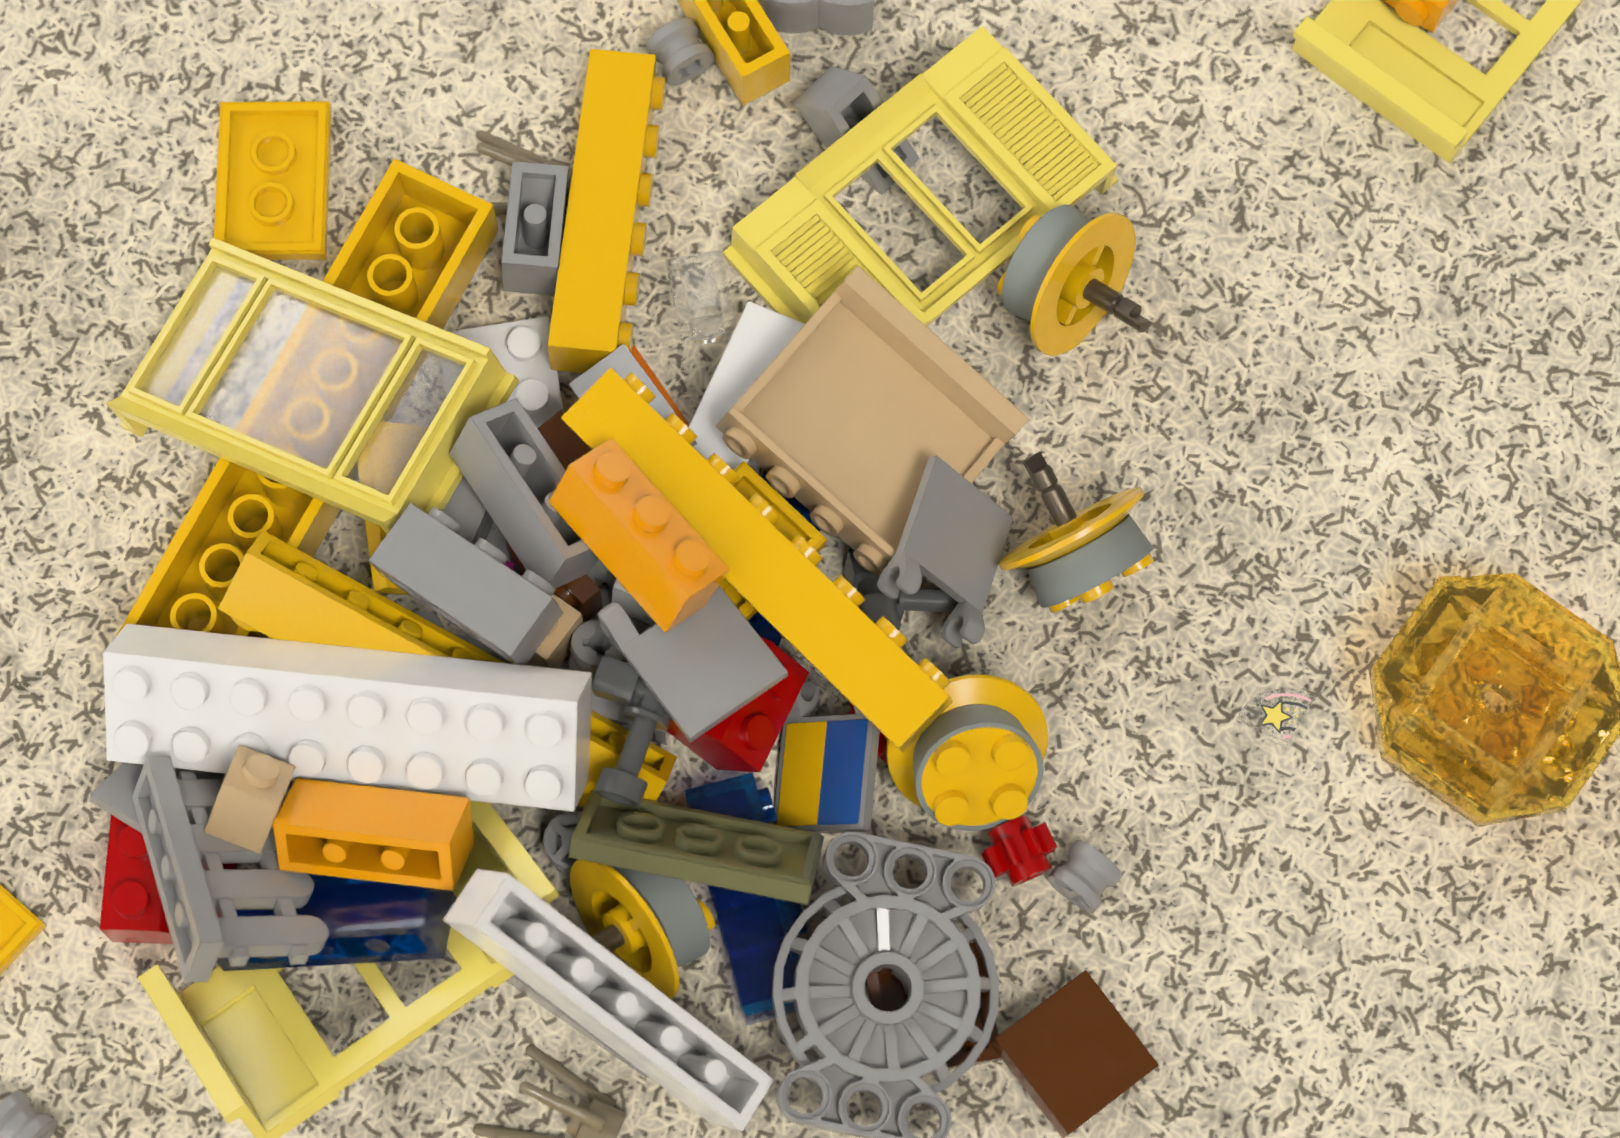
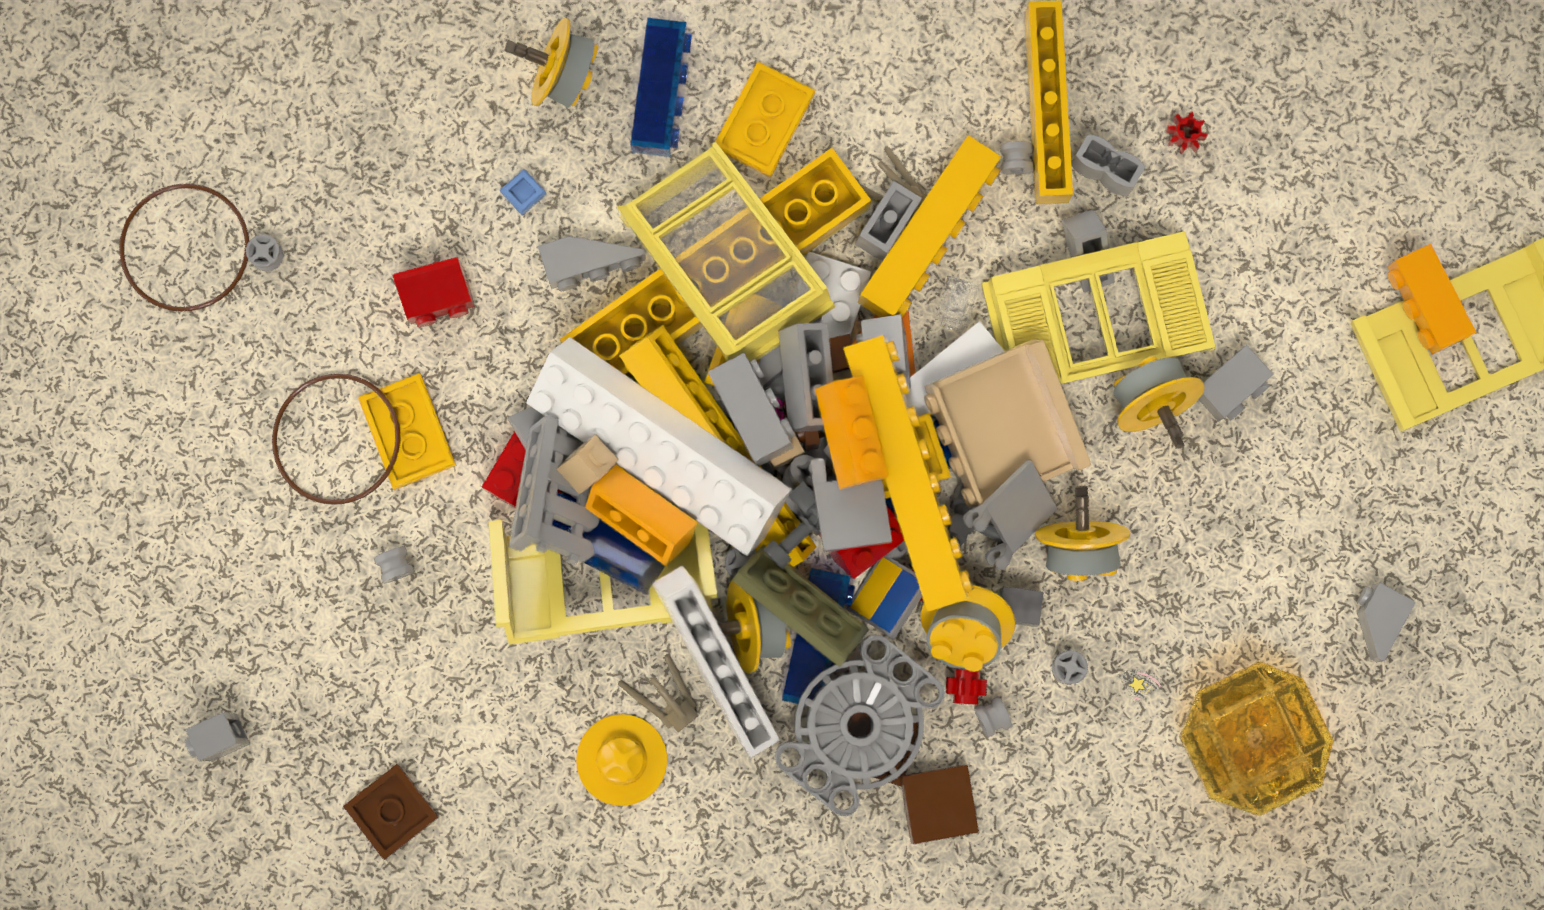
camera: 25 degrees right, 10 degrees up
(88, 208) = (660, 86): none -> clear blue brick
(90, 512) = (579, 258): none -> light grey slope
(1046, 679) = (1024, 604): none -> flat silver brick
(1160, 730) = (1075, 668): none -> light grey wheel
(1172, 209) = (1234, 383): none -> light grey brick
(1578, 434) = (1382, 618): none -> light grey slope

